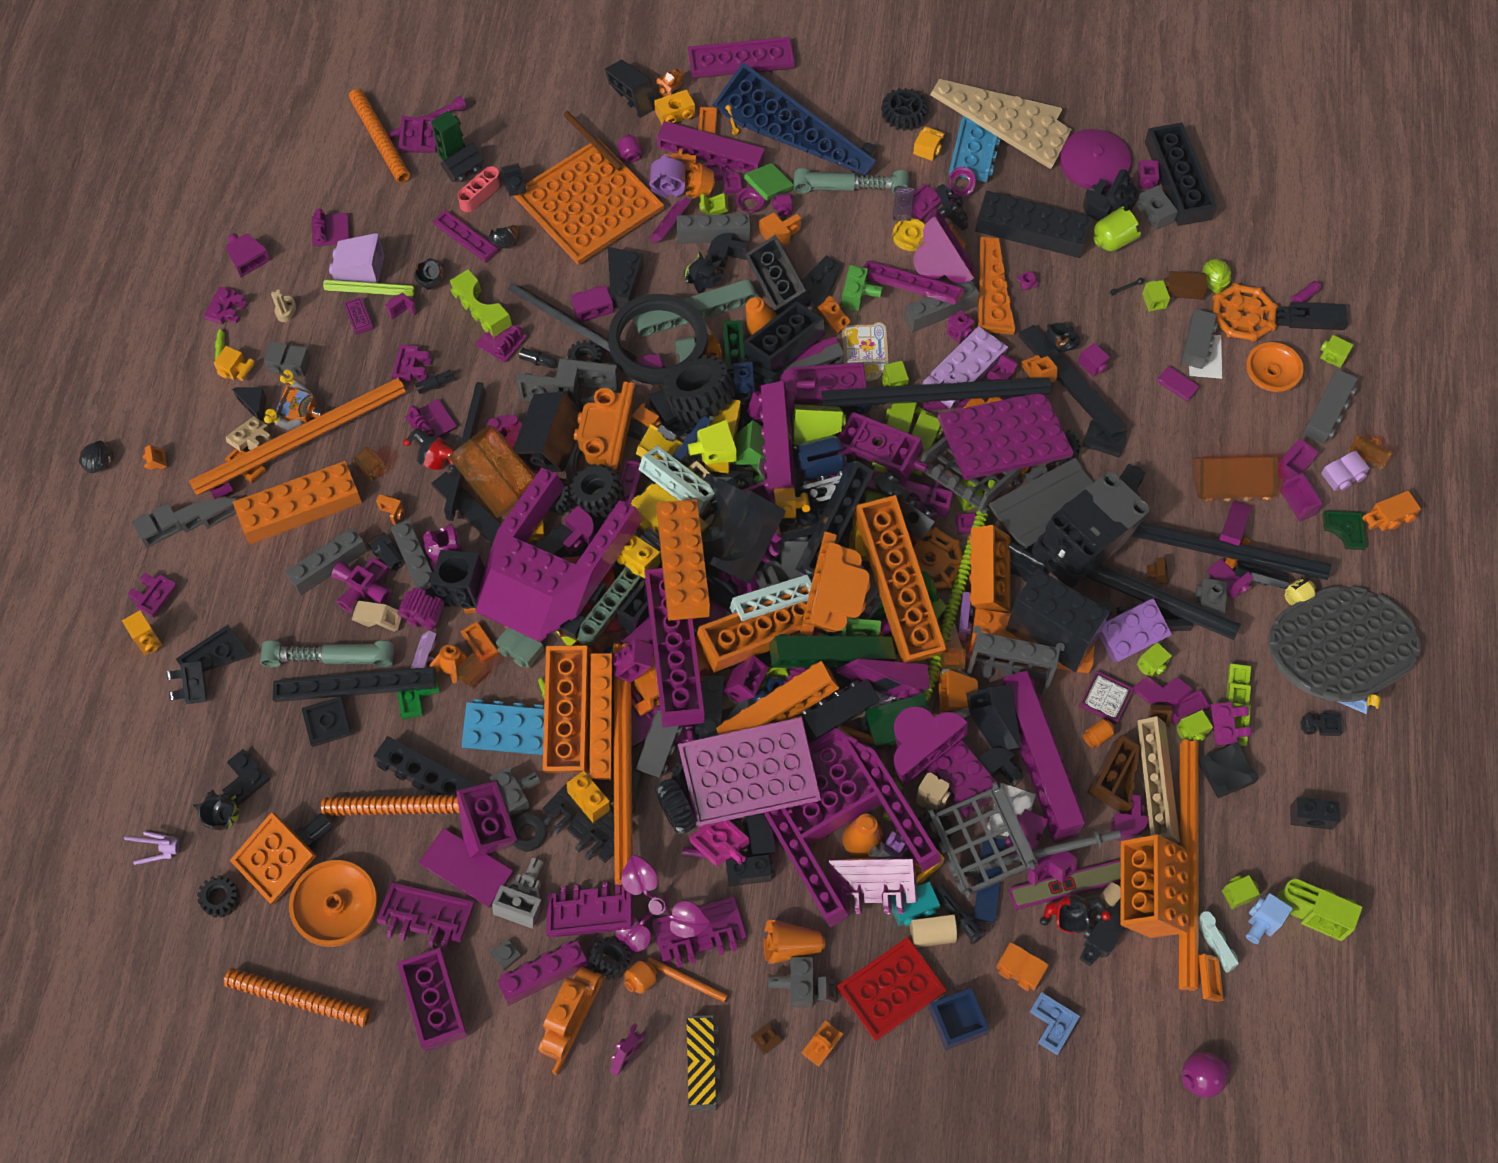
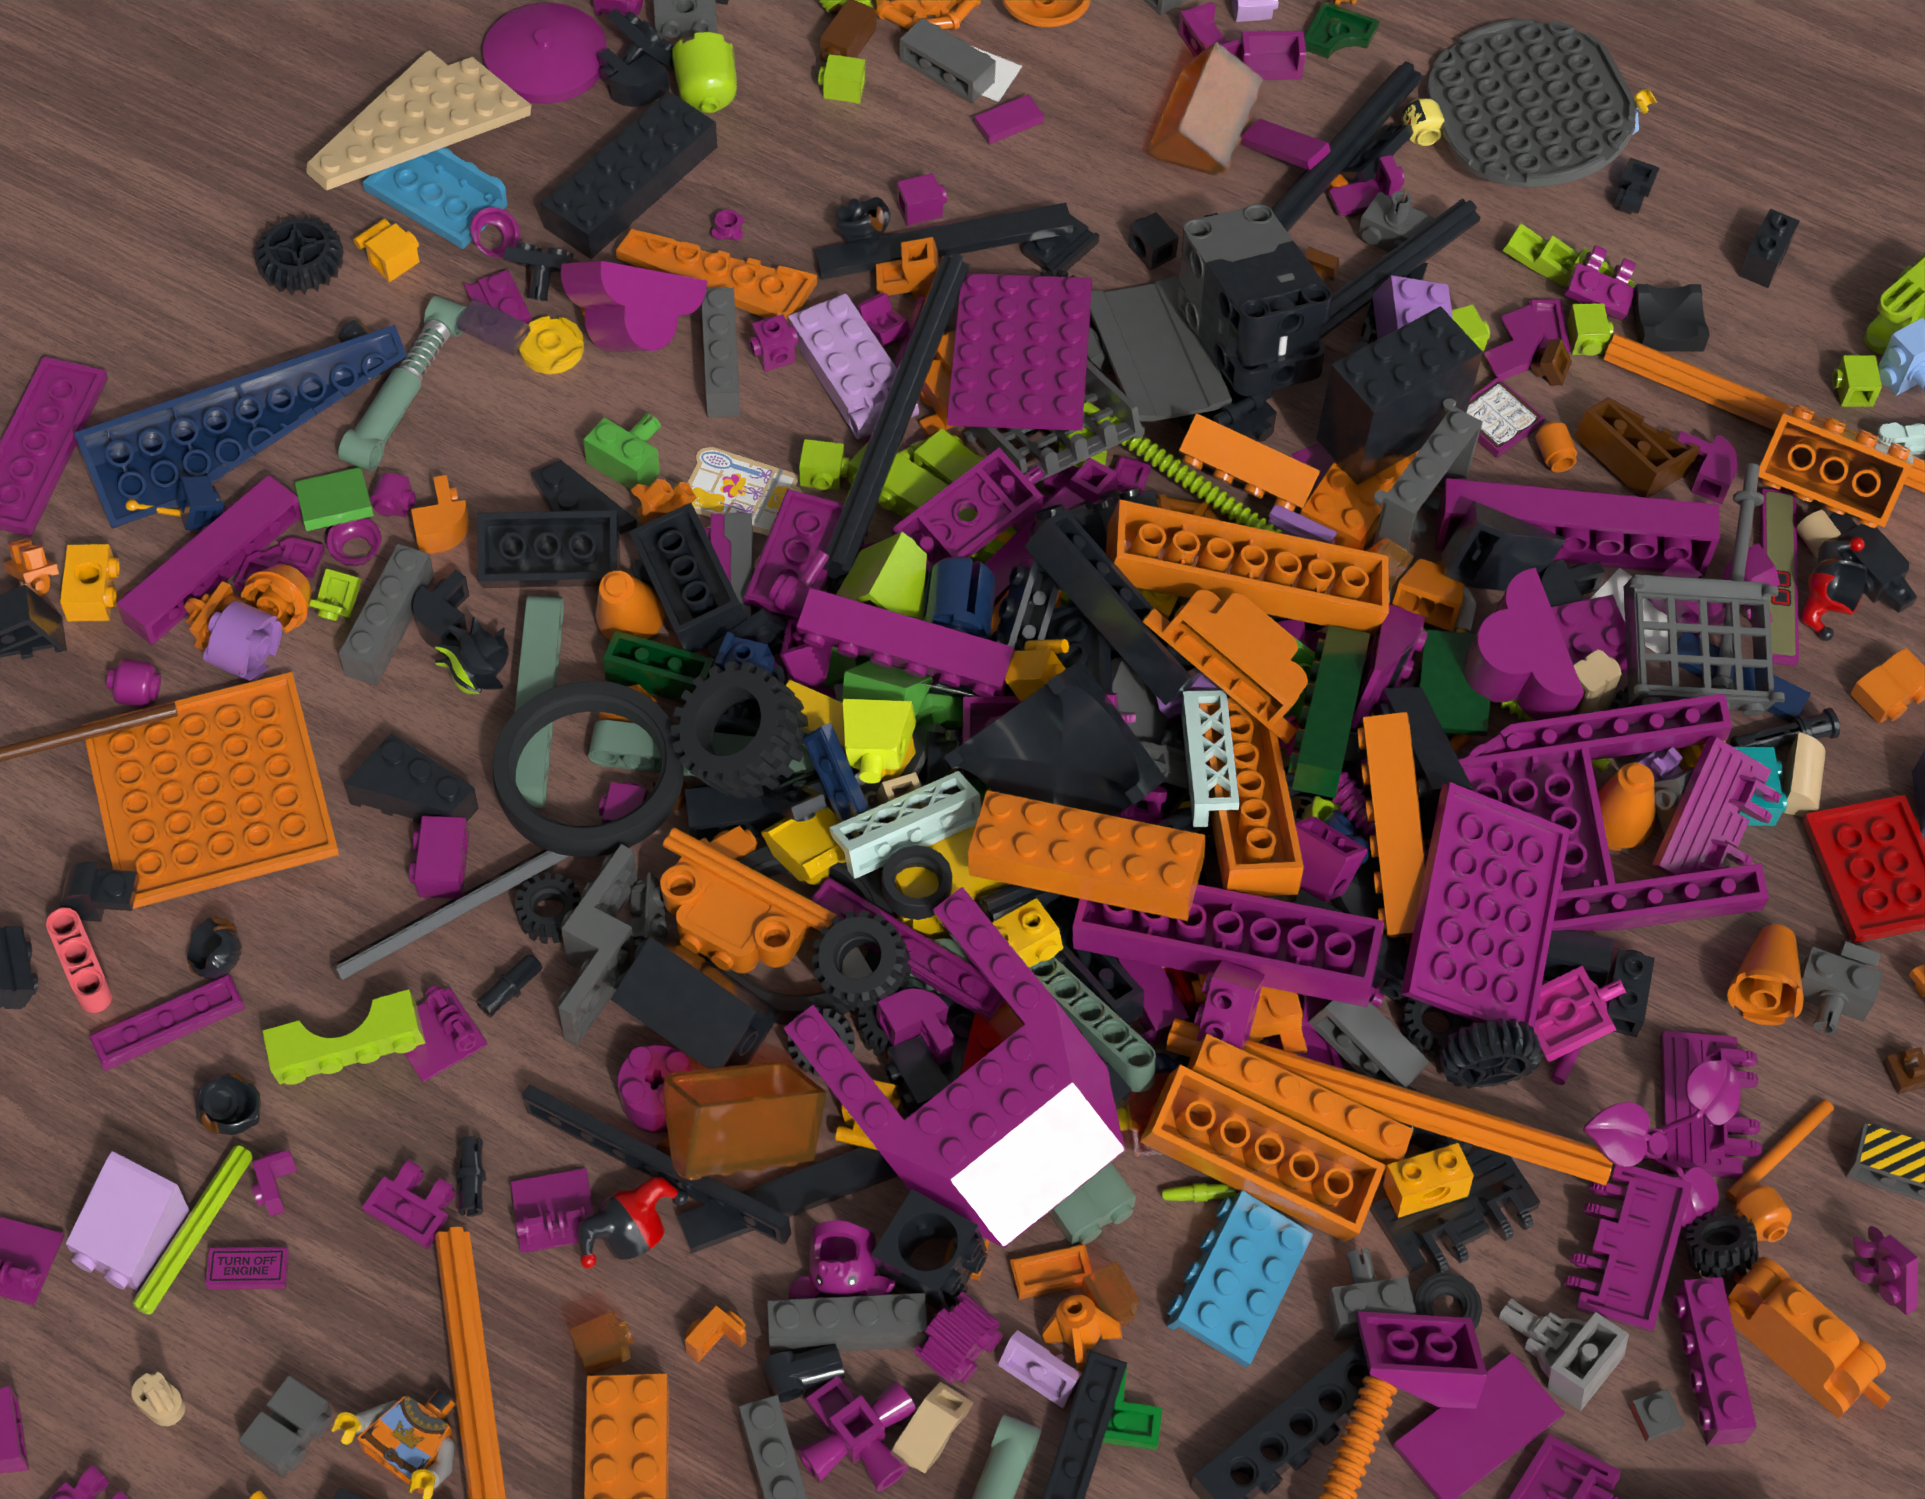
camera: 70 degrees left, 5 degrees down
(643, 482) = (916, 857): none -> black tyre
(669, 220) = (329, 675): magenta tile -> none
(708, 119) = (142, 545): orange tile -> none
(738, 129) = (198, 502): none -> dark blue brick
(913, 282) = (664, 366): magenta tile -> none
(1140, 281) = (803, 89): black hinge -> none
(1158, 778) = (1664, 402): tan brick -> none

